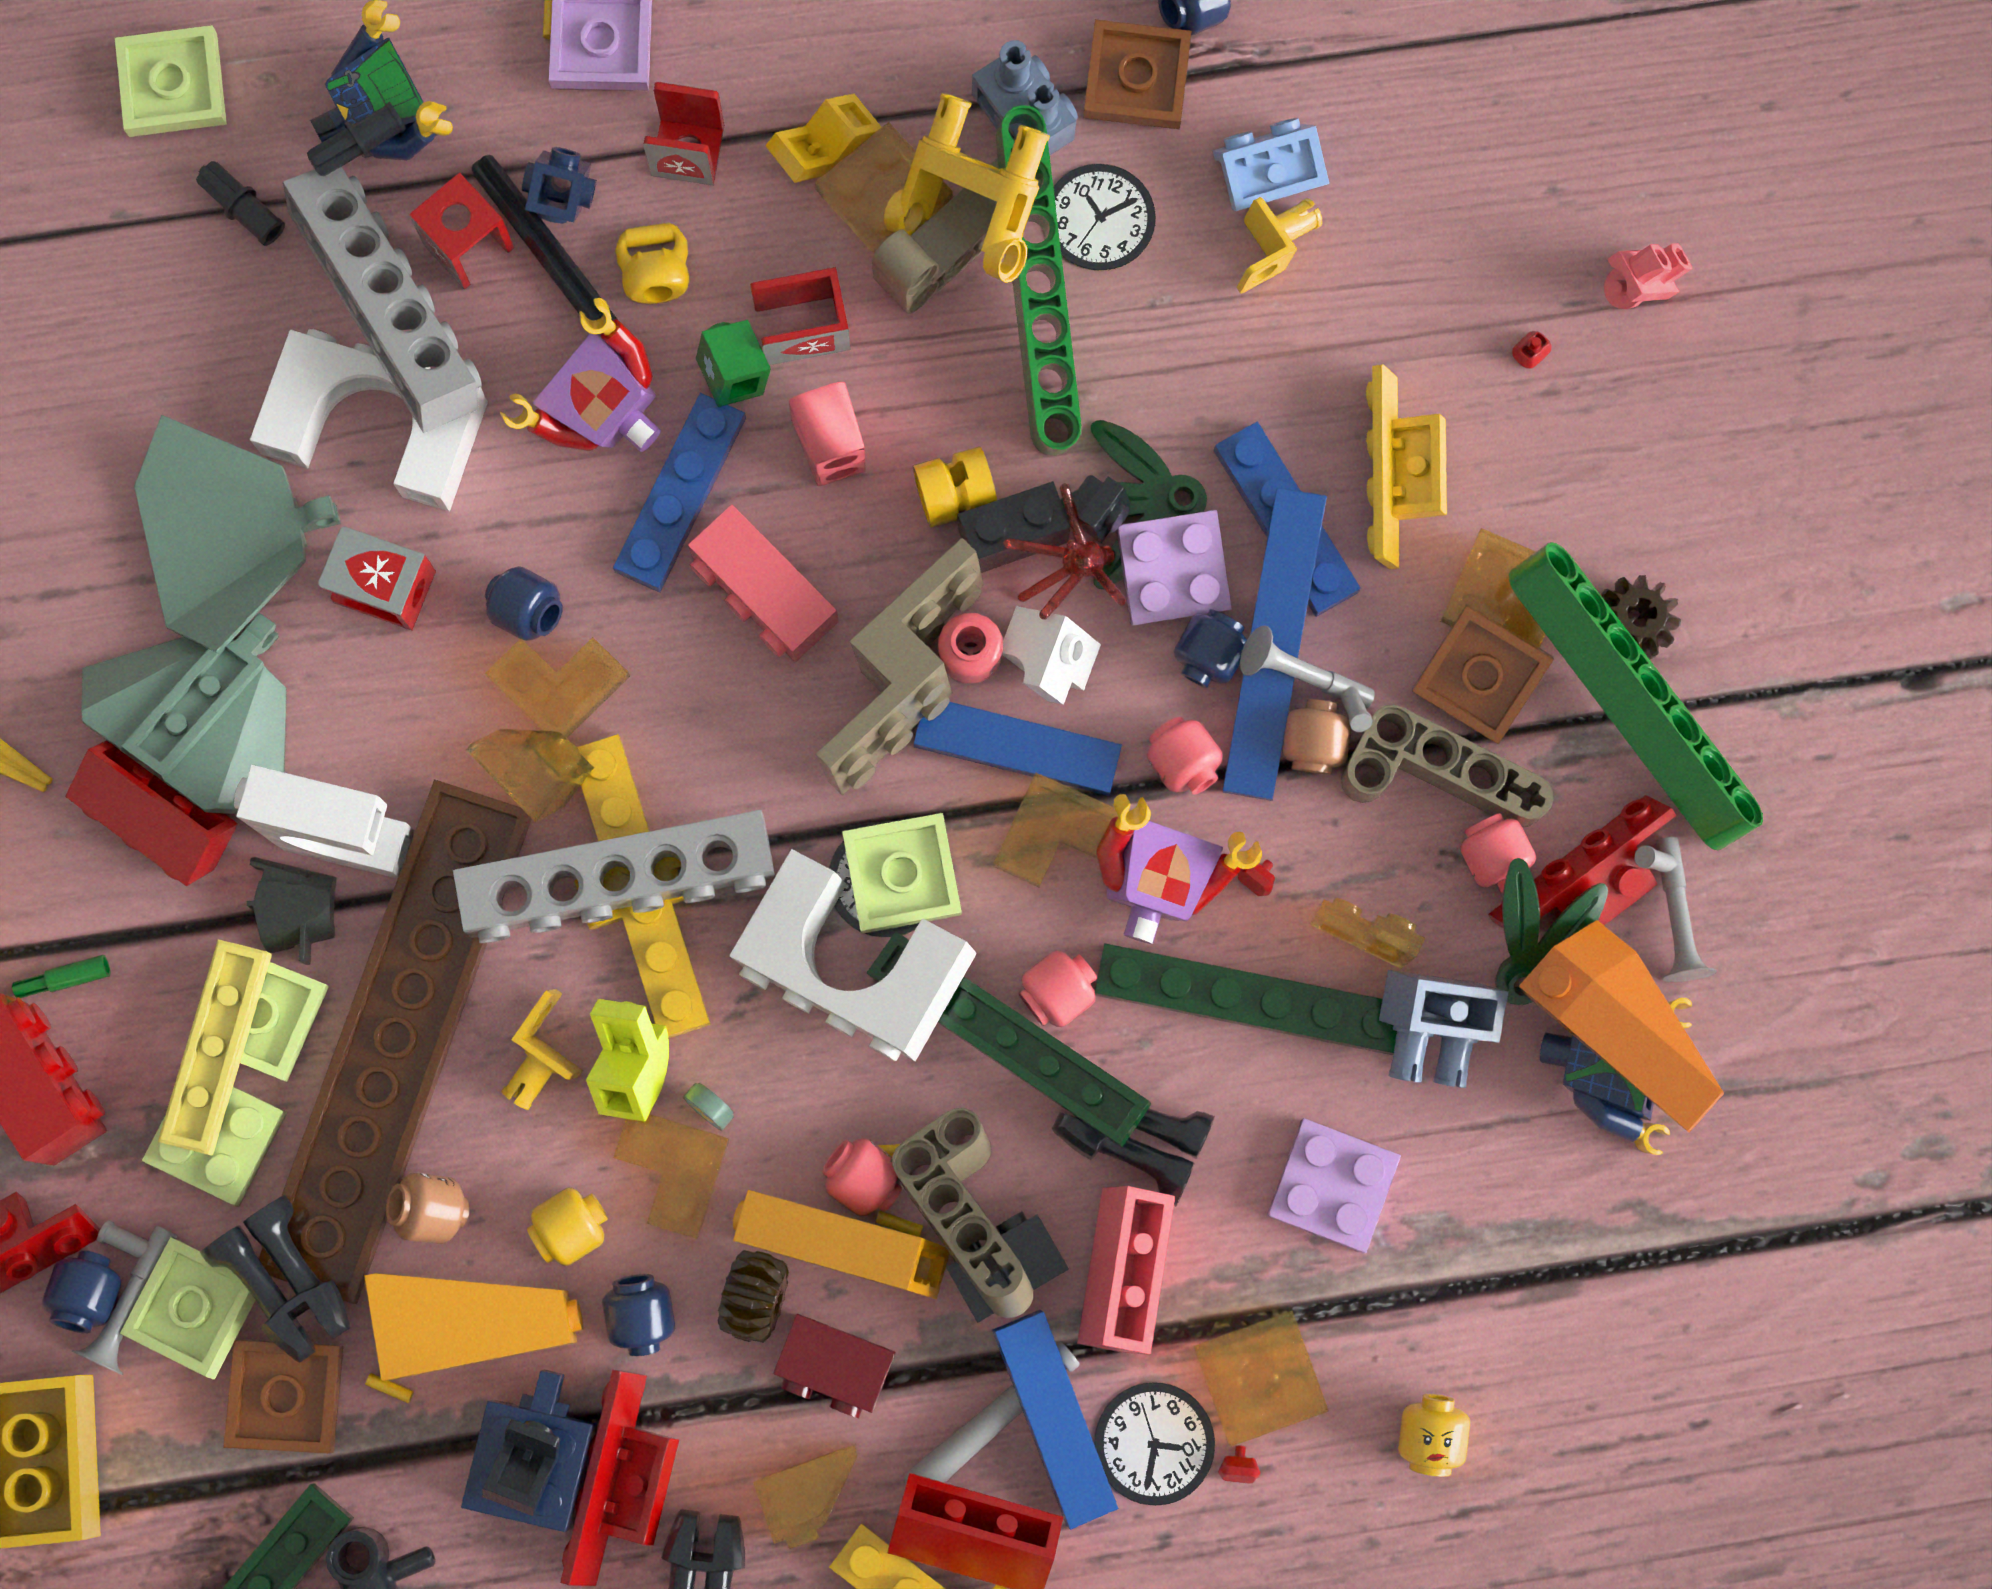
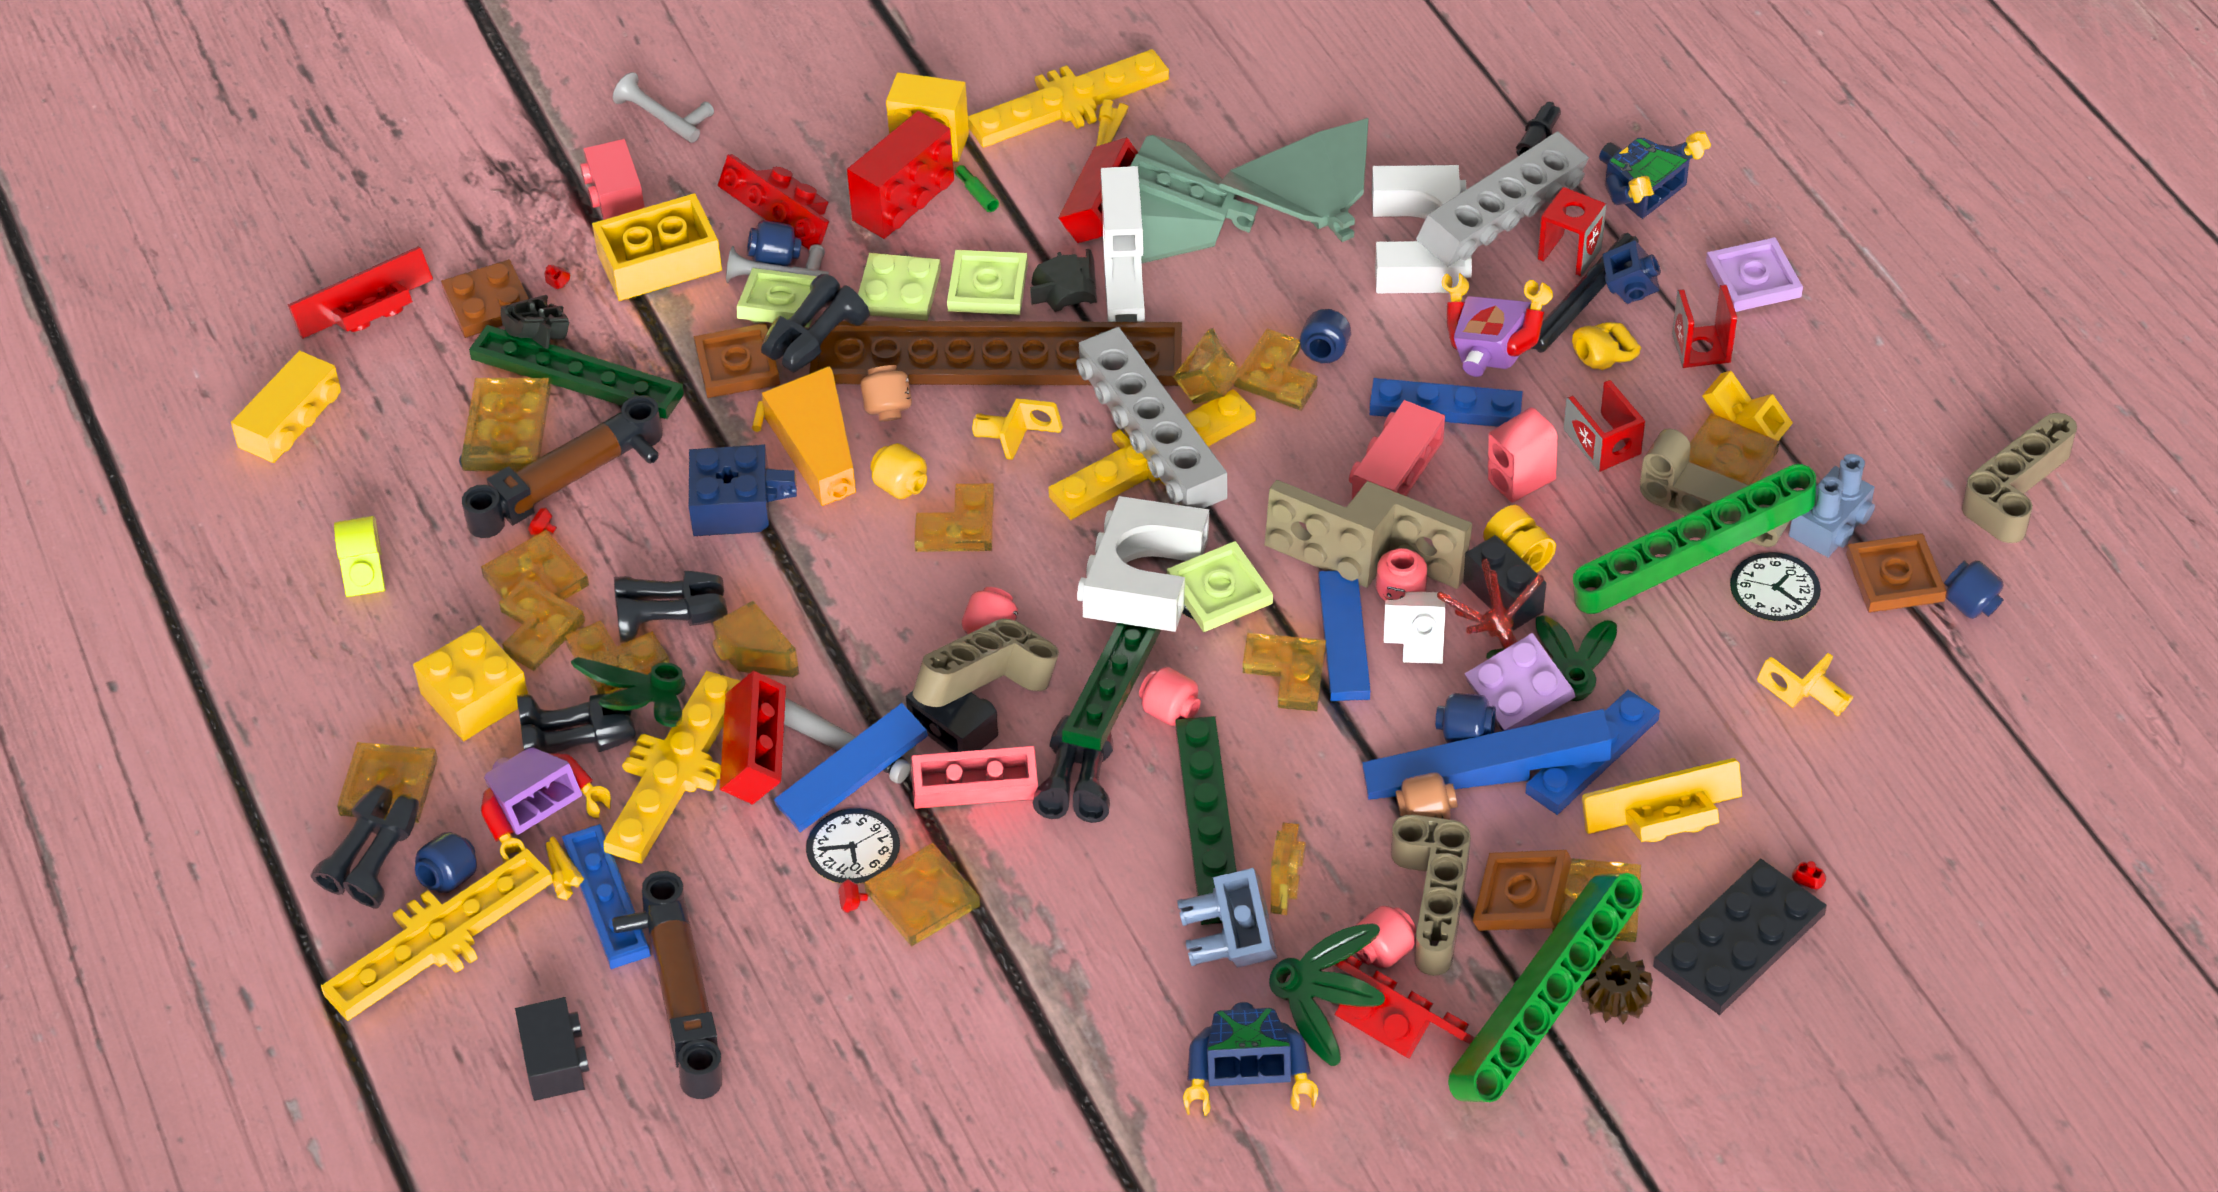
camera: 80 degrees right, 30 degrees down
(170, 81) = (1605, 75): yellowish green plate -> none
(215, 1047) = (956, 260): light yellow tile -> none
(355, 140) = (1605, 156): black axle -> none
(377, 577) = (1308, 257): piece -> none
(523, 1466) = (725, 459): black bracket -> none
(622, 1484) = (732, 538): red bracket -> none
(632, 1060) = (1025, 472): neon yellow brick -> none
(638, 1314) = (850, 521): dark blue head -> none
(709, 1106) = (1009, 523): sand green tile -> none
(732, 362) = (1549, 393): green brick -> none
(753, 1296) = (883, 572): dark brown gear -> none
(834, 1365) = (850, 636): dark red brick -> none
(840, 1243) = (935, 601): light orange slope -> none
(1012, 187) = (1742, 463): yellow connector -> none
(1101, 506) = (1540, 616): black bracket -> none
(1164, 869) = (1282, 722): torso -> none
(1184, 755) = (1376, 724): coral head -> none
(1258, 878) = (1304, 799): red rock -> none
(1263, 653) = (1471, 812): light grey piece -> none
(1272, 164) = (1868, 669): light blue bracket -> none
(1333, 1185) = (1084, 905): lavender plate -> none
(1434, 1435) = (912, 1004): yellow head -> none
(1593, 456) = (1739, 936): none -> black plate
(1618, 1012) = (1278, 1009): orange wedge -> none
(1644, 275) = (1901, 917): coral hips -> none
(1668, 860) = (1426, 1061): light grey piece -> none

